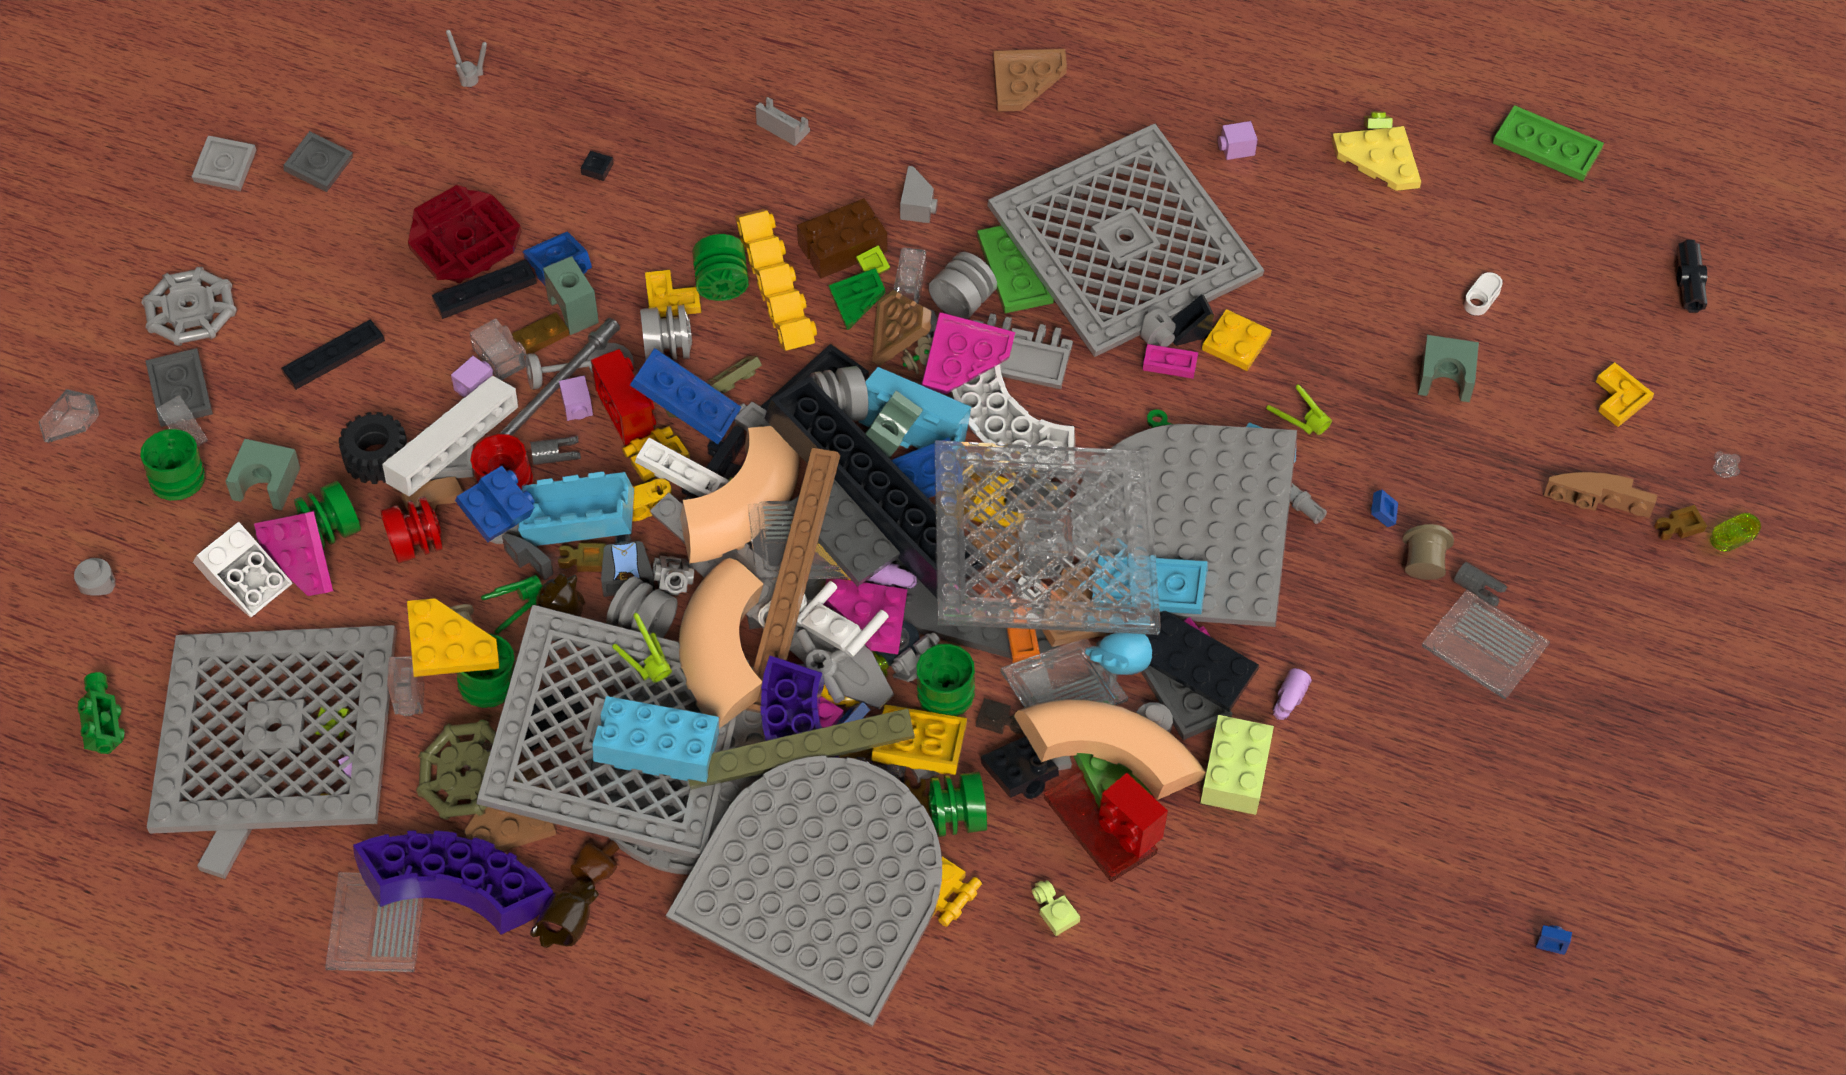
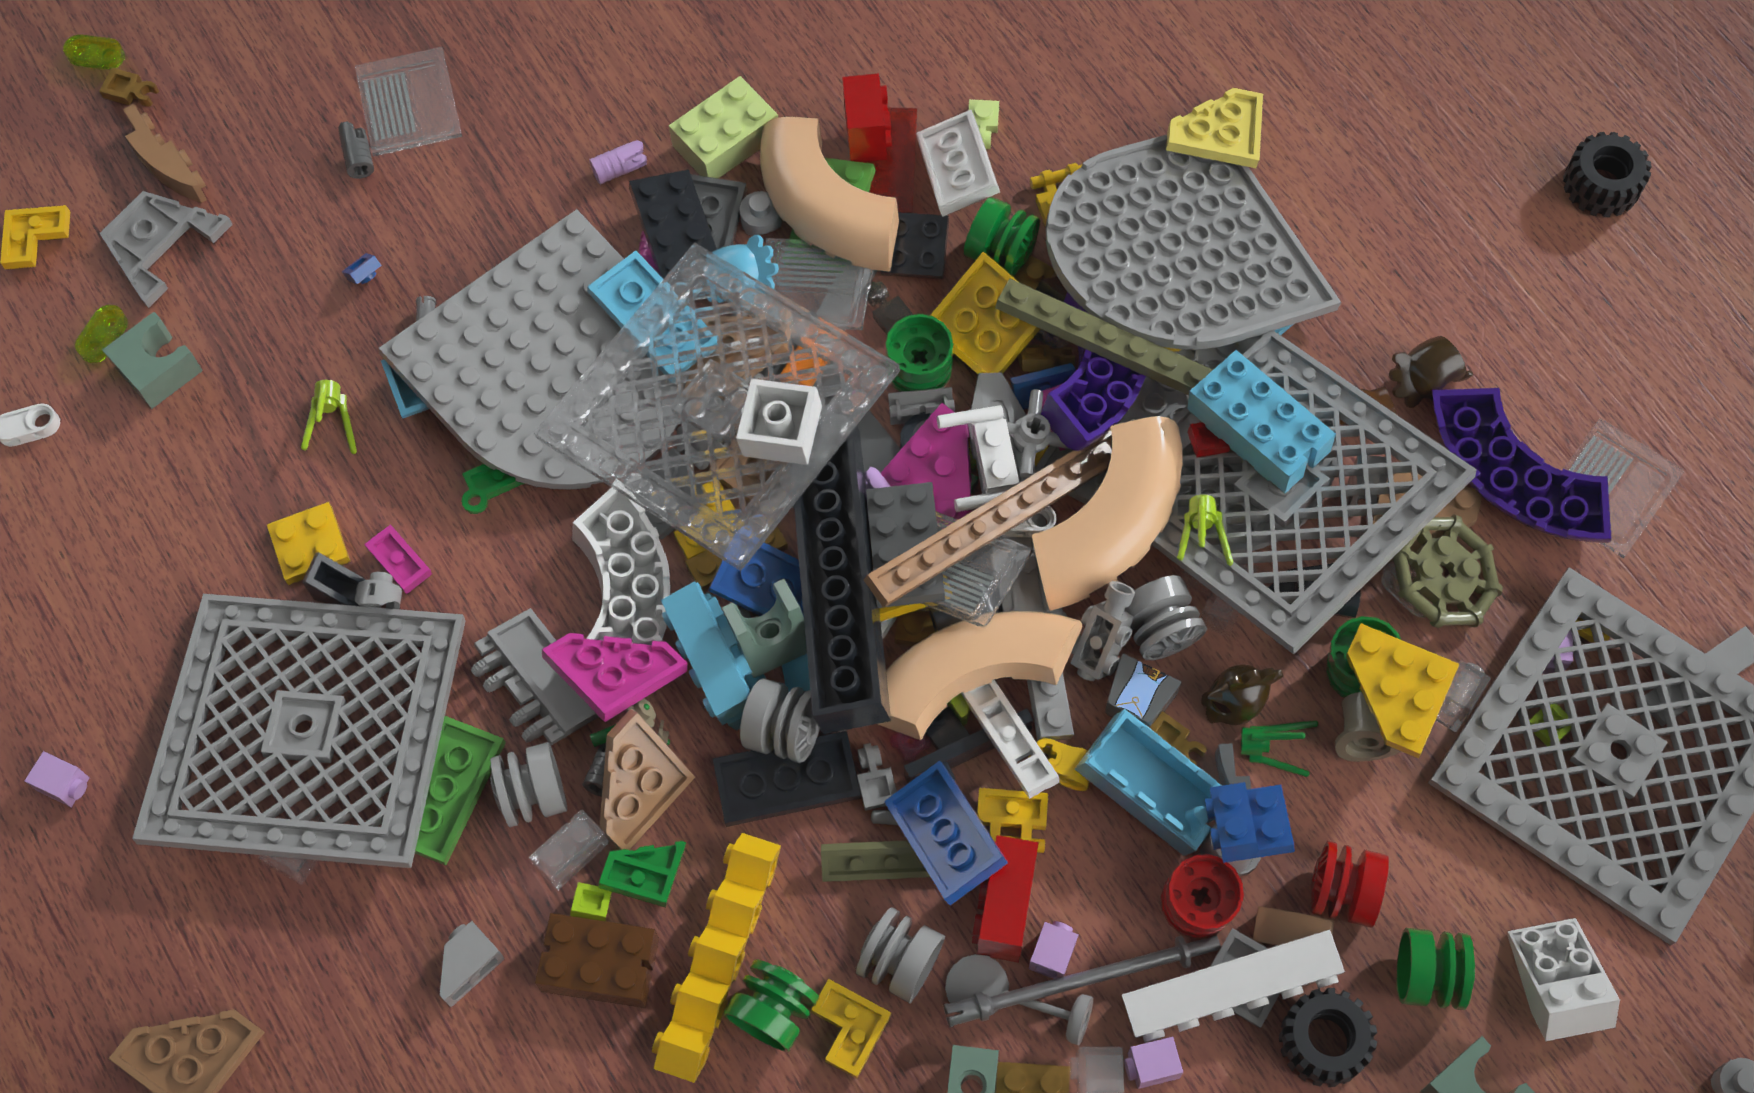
camera: 140 degrees left, 10 degrees up
(297, 550) = (1495, 948): dark pink plate -> none
(547, 450) = (1120, 899): dark grey hinge -> none
(858, 1005) = (1221, 129): none -> light yellow plate
(980, 520) = (779, 421): none -> white brick
(1039, 840) = (957, 163): none -> white tile
(1427, 551) = (374, 196): dark tan piece -> none
(1501, 369) = (99, 334): none -> clear neon green plate
(1550, 439) = (148, 231): none -> light grey wing
(1729, 469) = (25, 114): clear plate -> none

